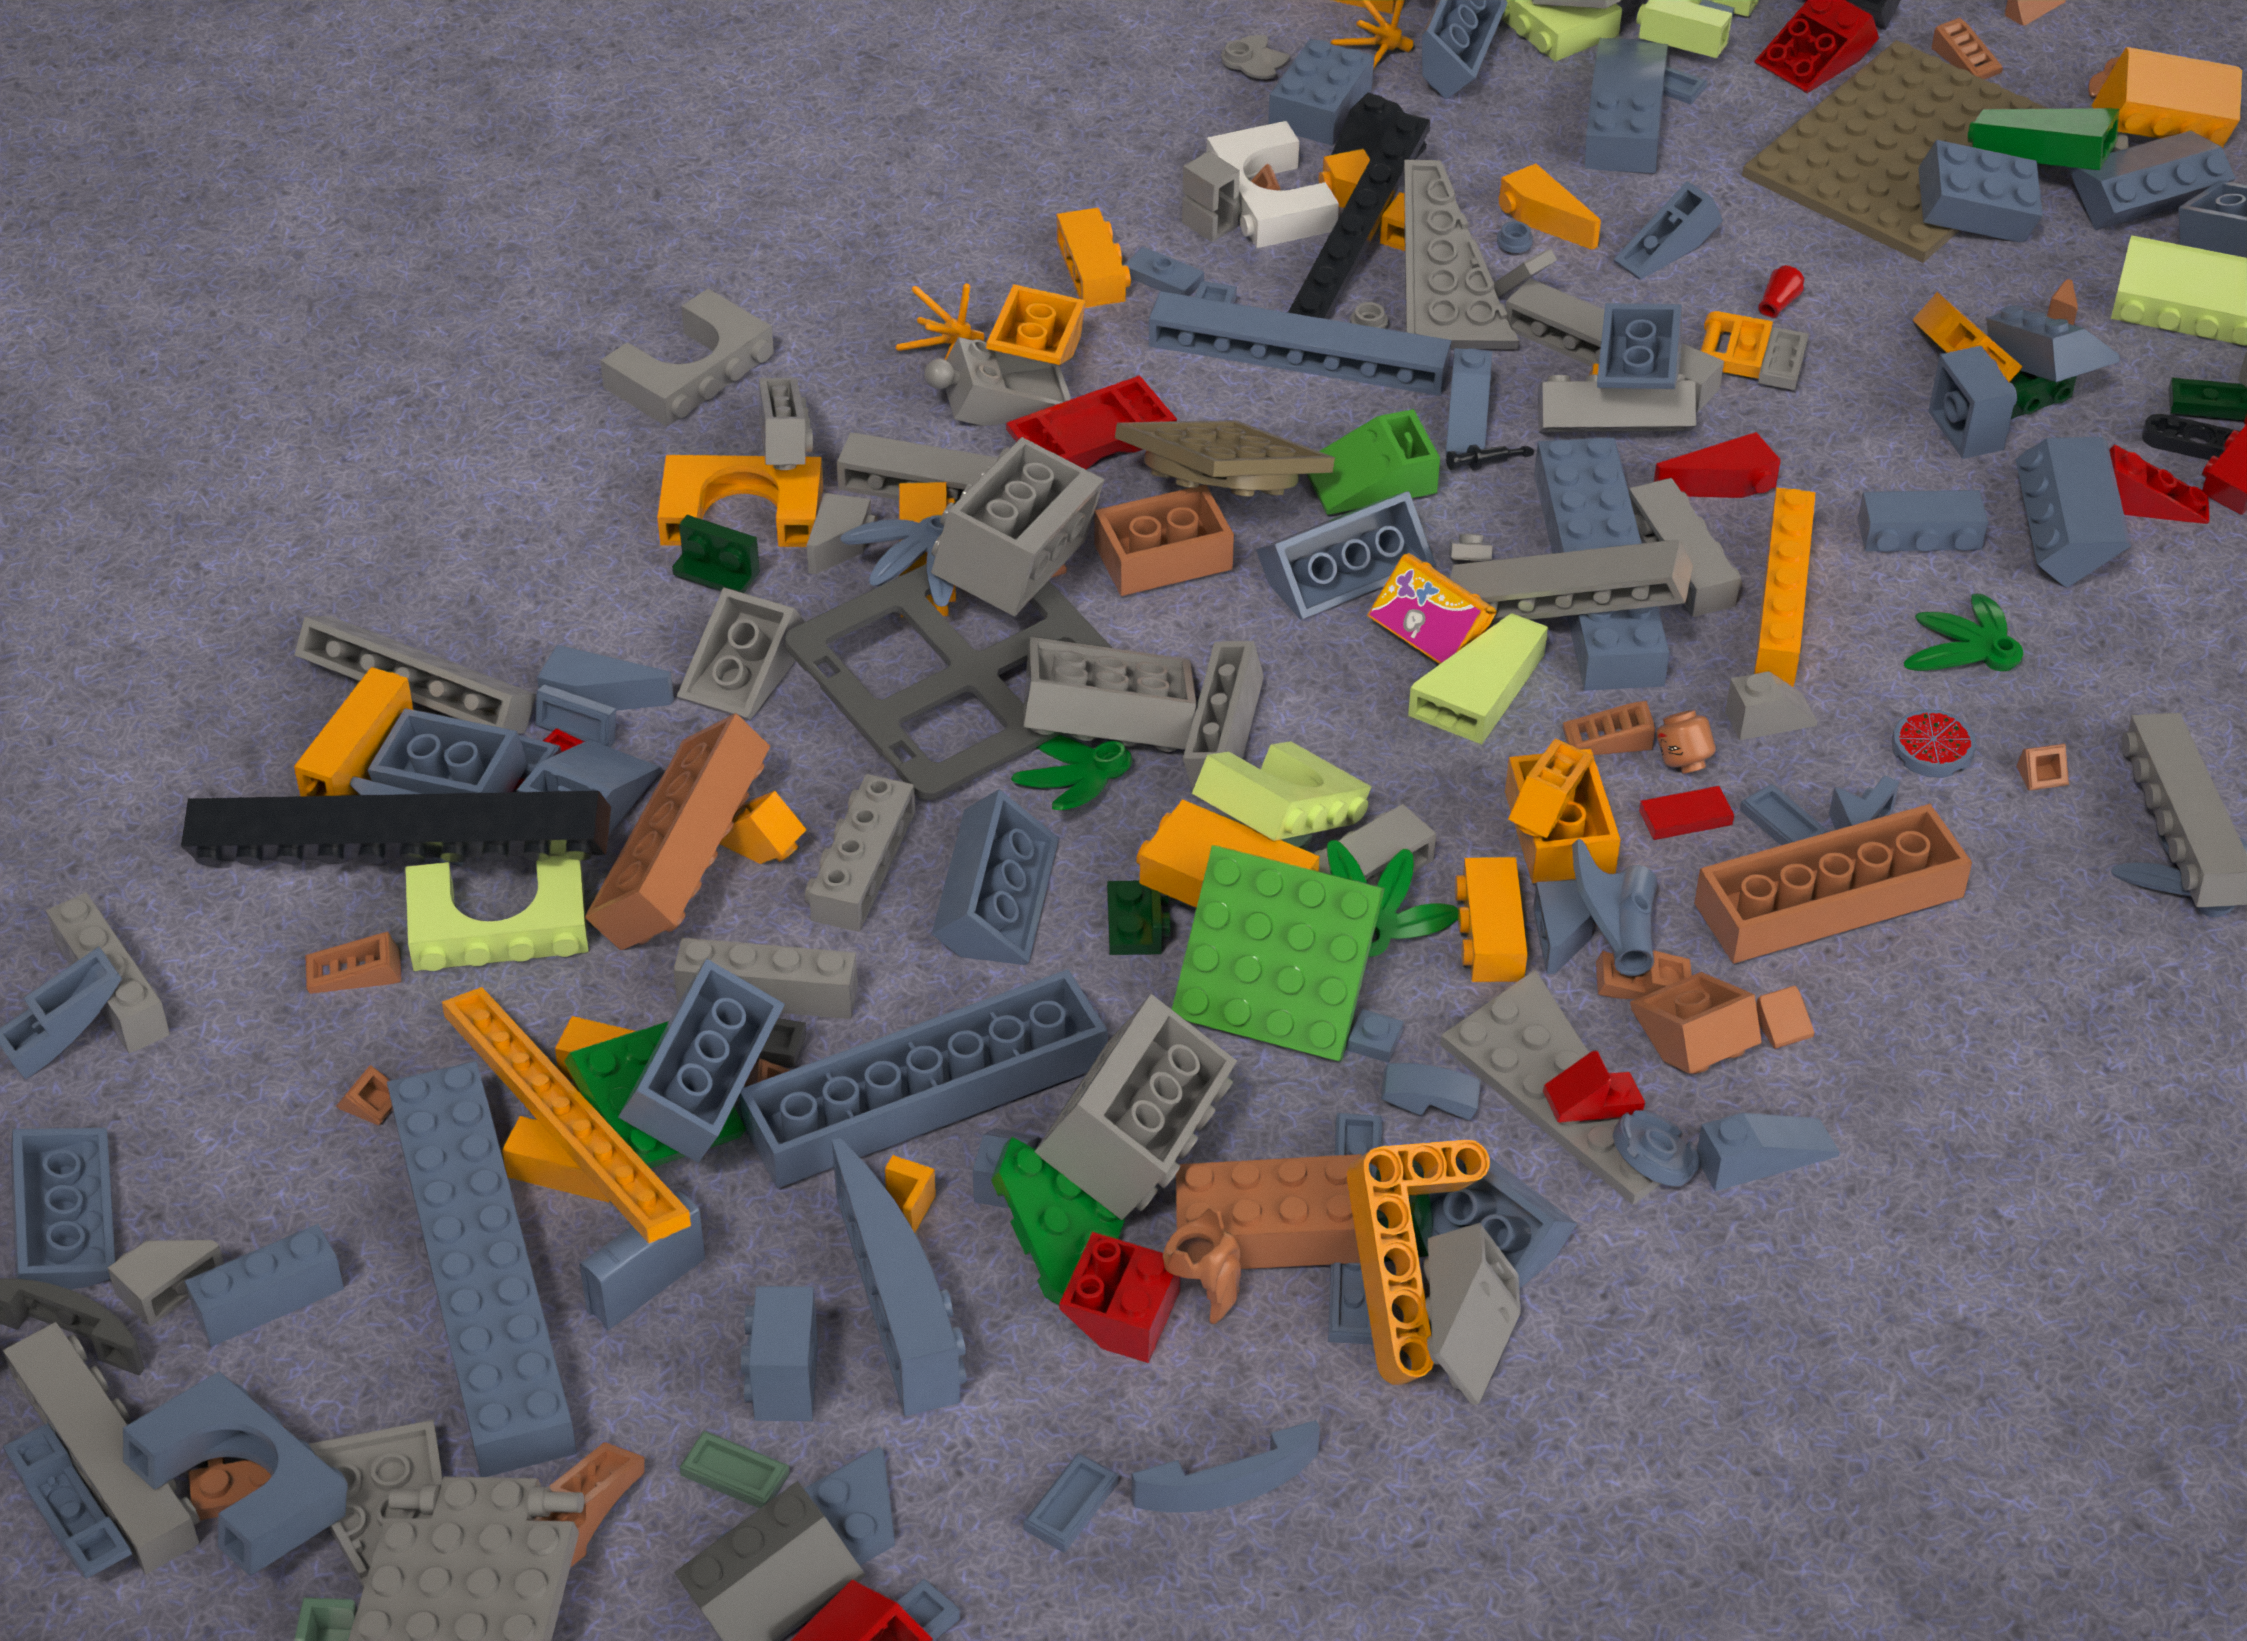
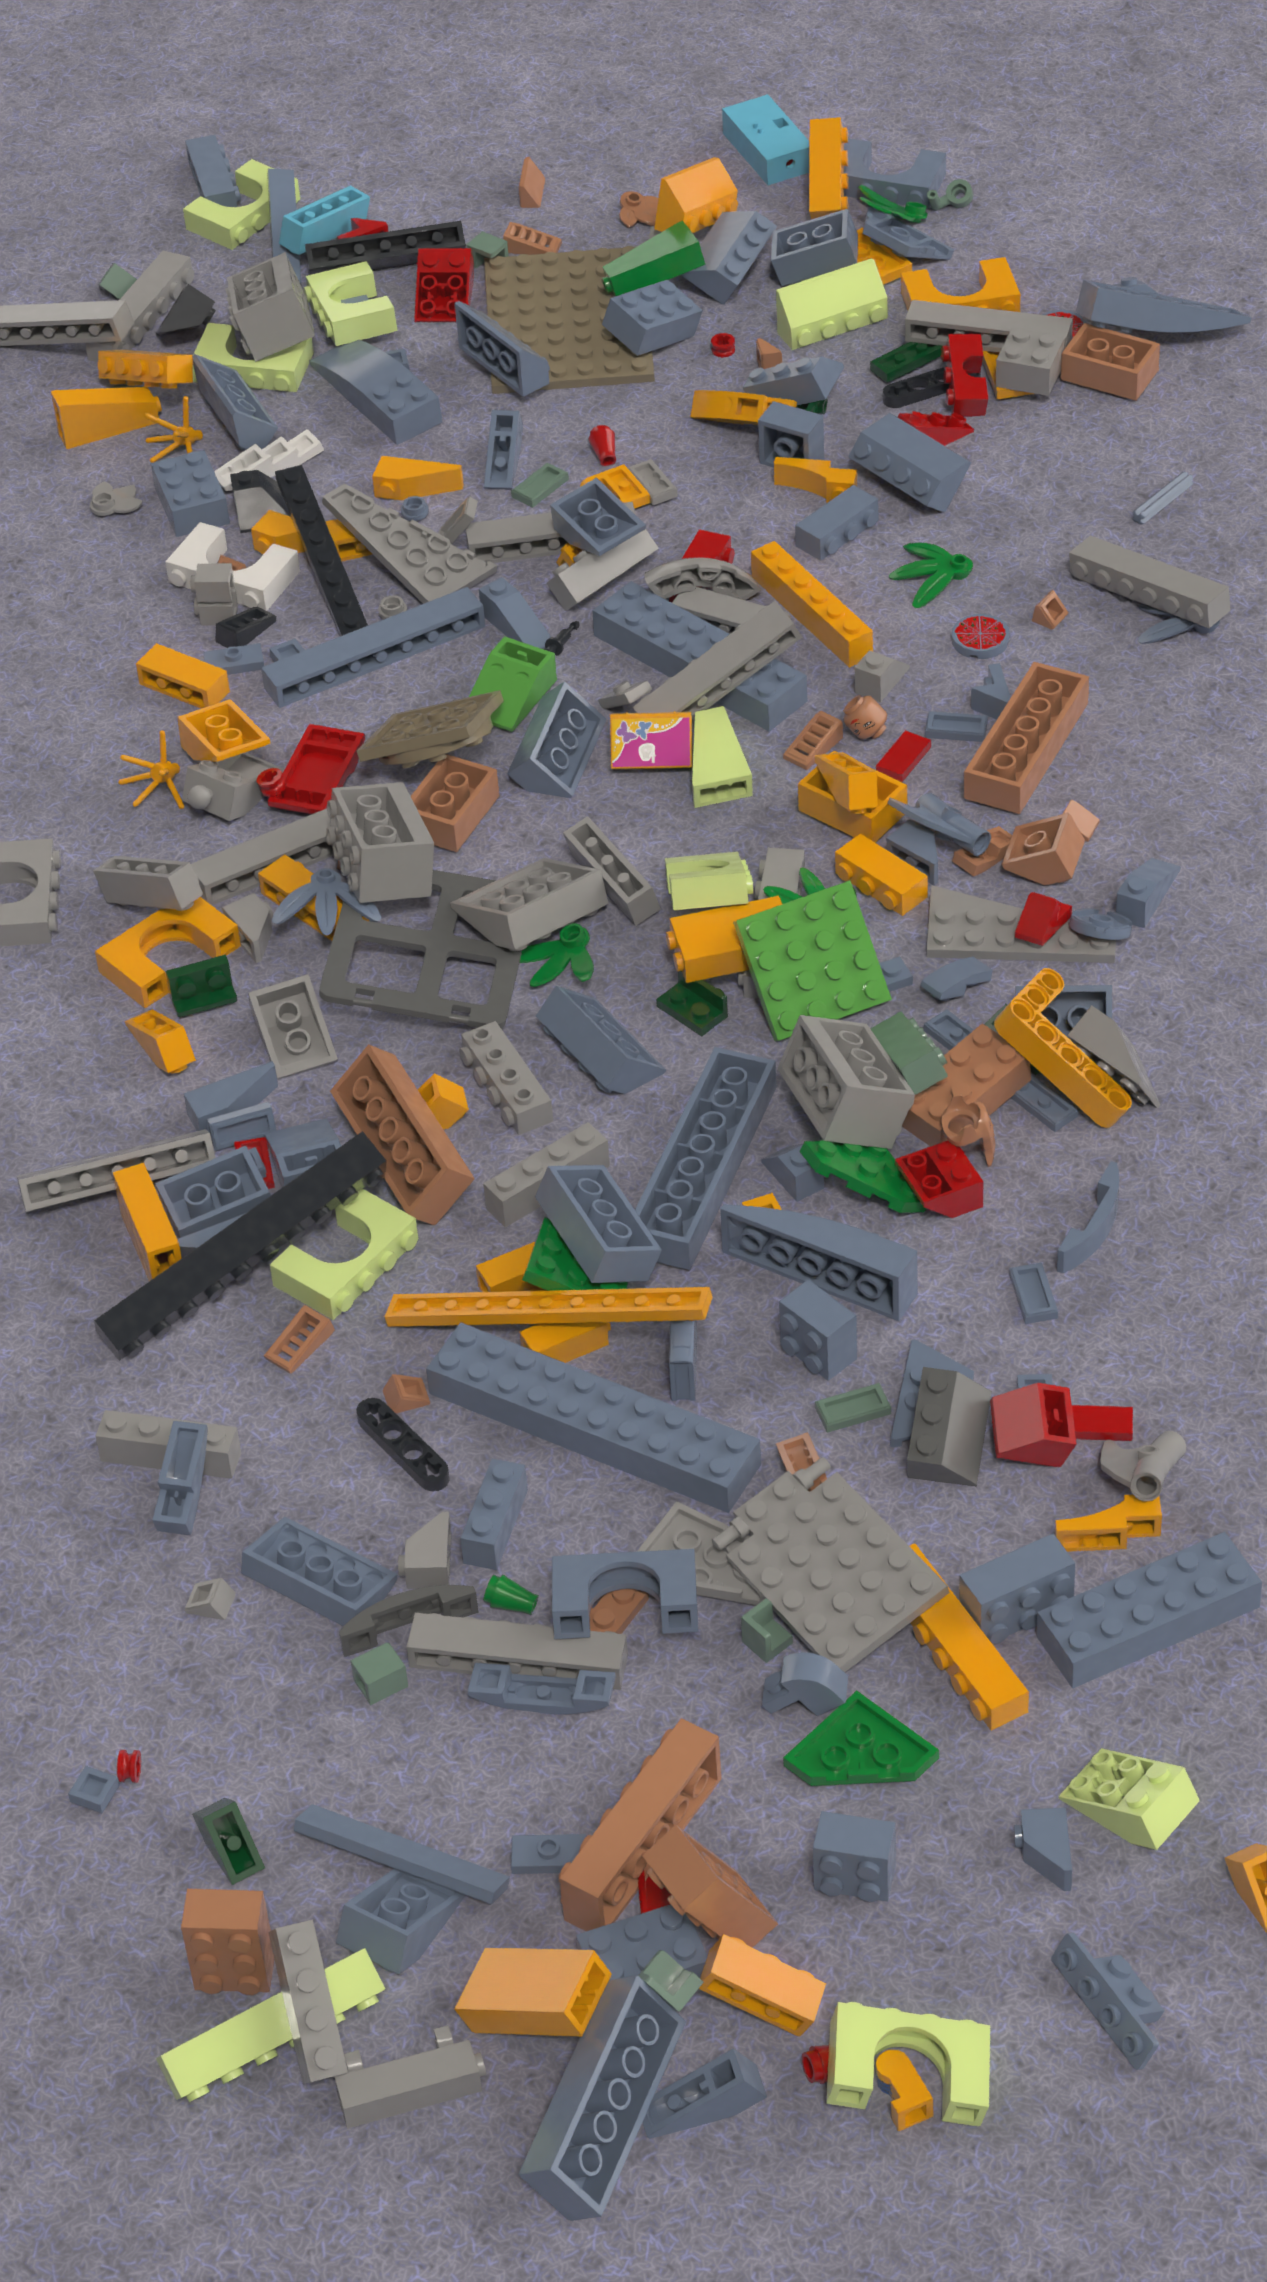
camera: 40 degrees left, 0 degrees up
(169, 1372) = (508, 1595): none -> green cone
(292, 1144) = (406, 1442): none -> black beam
(619, 583) = (162, 1040): none -> light orange slope
(1026, 405) = (271, 782): none -> red bush
(1212, 247) = (241, 628): none -> black slope
(1245, 1126) = (911, 1051): none -> sand green brick
(1446, 108) = (272, 458): none -> white slope
(1675, 289) = (540, 485): none -> sand green tile
(1713, 489) = (688, 573): none -> light grey brick
(1781, 130) = (500, 351): none -> sand blue slope
(1905, 28) = (487, 246): none -> sand green panel
(1959, 458) = (813, 476): none -> light orange slope
(2037, 268) = (723, 345): none -> red bush

